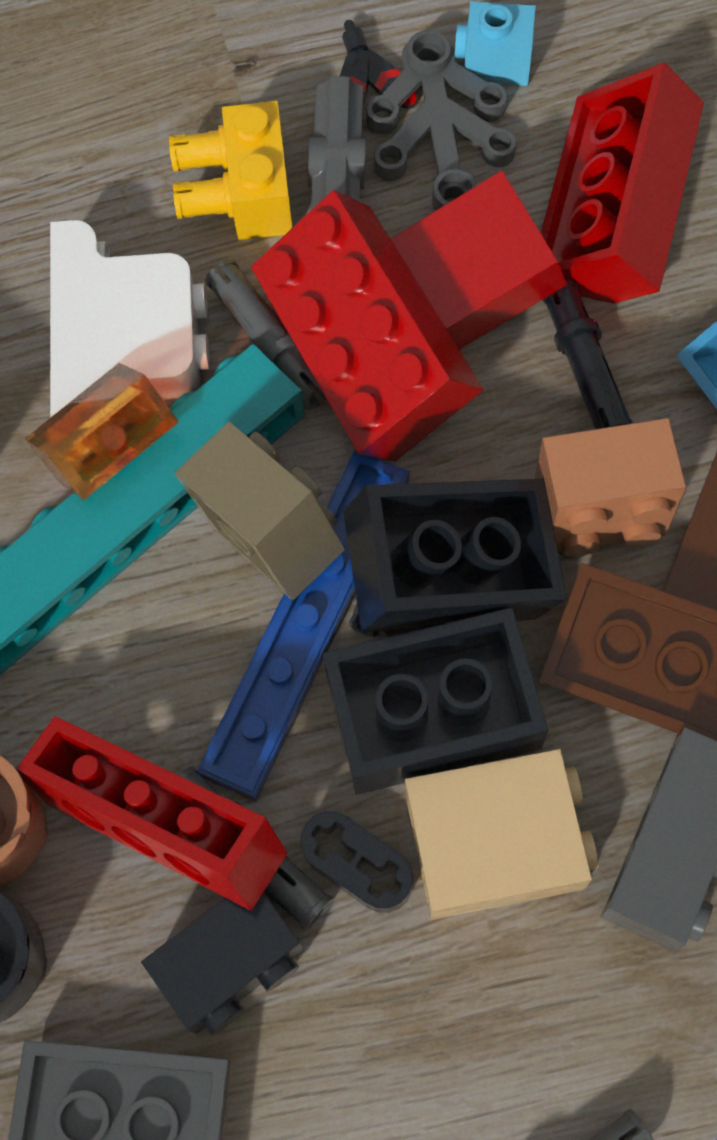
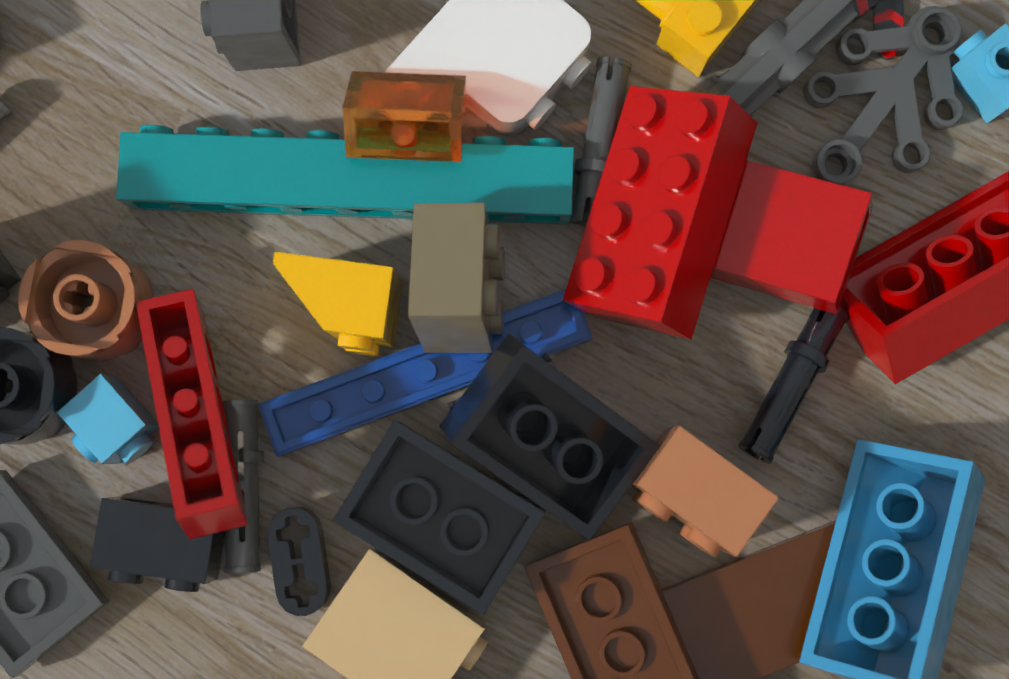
camera: 45 degrees right, 15 degrees up
(84, 904) = (109, 422): none -> medium azure brick
(186, 609) = (347, 299): none -> yellow slope

